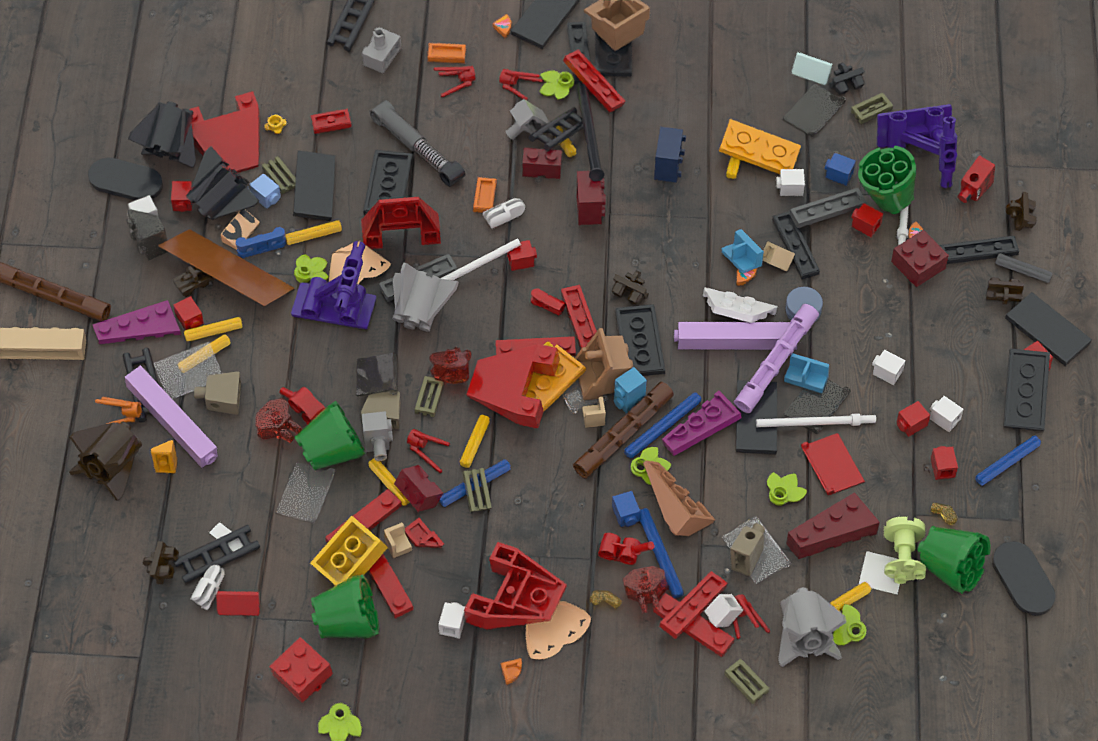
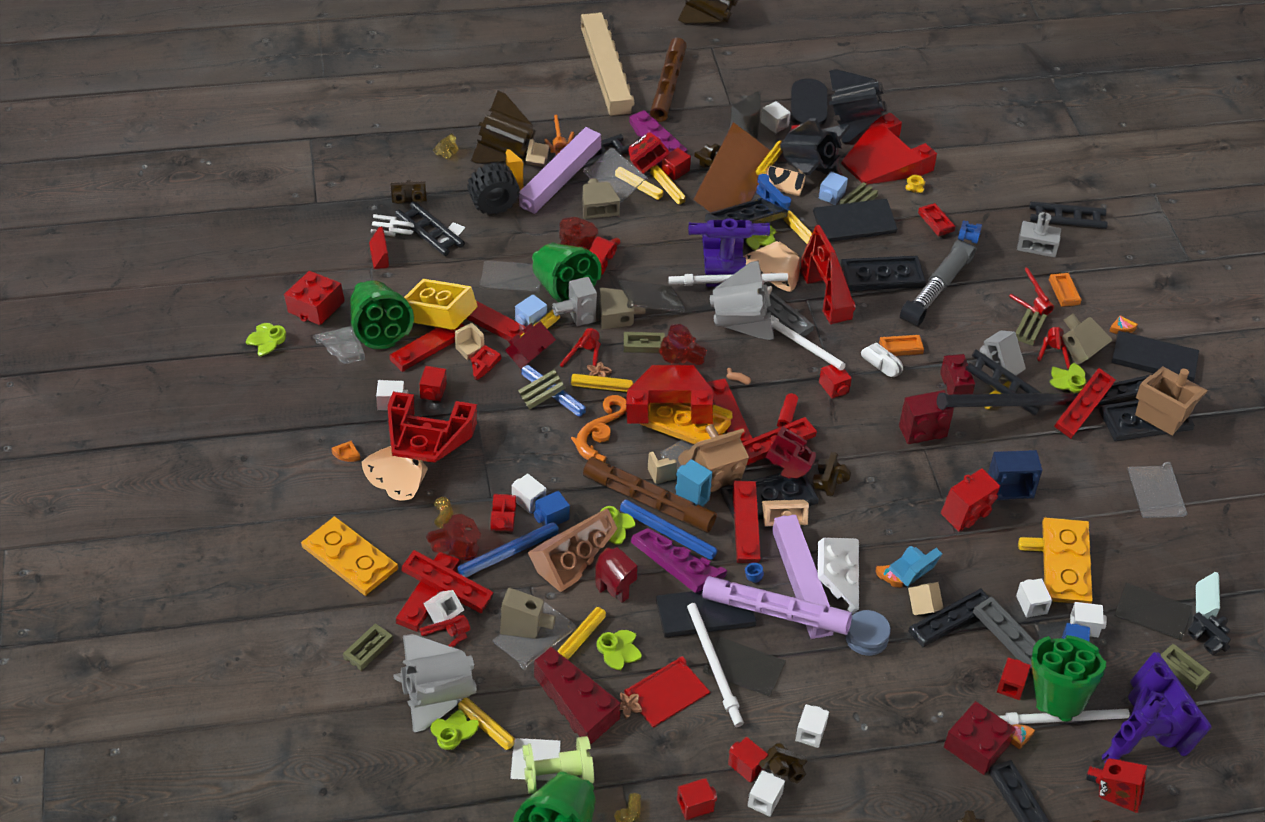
camera: 75 degrees right, 10 degrees down
(93, 517) = (445, 145): none -> clear yellow tile
(145, 435) = (537, 154): none -> tan panel
(170, 332) = (647, 152): none -> red torso
(193, 478) = (493, 188): none -> black tyre
(203, 231) = (770, 159): none -> yellow axle
(290, 270) = (756, 211): none -> black tile
(362, 98) = (970, 232): none -> blue plate
(362, 337) = (689, 279): none -> white bar
(366, 655) = (342, 344): none -> clear wing
(370, 481) = (530, 311): none -> light blue brick
(445, 581) = (433, 383): none -> red brick
(457, 441) = (599, 370): none -> nougat plant
(489, 91) = (1034, 317): none -> olive tile
(494, 329) = (738, 377): none -> nougat piece
(522, 56) = (1084, 338): none -> dark tan torso
(534, 451) = (600, 426): none -> orange plant
(600, 523) = (527, 492): none -> white brick
(610, 308) = (791, 453): none -> dark red brick
(640, 683) = (349, 556): none -> light orange piece
(664, 331) = (780, 508): none -> light nougat slope
(671, 362) = (746, 522): none -> red plate
(689, 192) = (970, 499): none -> red brick
(693, 65) = (1157, 491): none -> clear piece
(716, 469) = (615, 573): none -> dark red brick
(729, 368) = (751, 572): none -> blue hinge
(763, 513) = (582, 632): none -> yellow axle
(807, 373) = (773, 648): dark azure panel -> none
(819, 154) = (1089, 616): none -> white brick
(840, 493) = (629, 704): none -> nougat plant
(928, 392) = (784, 763): none -> dark brown hips

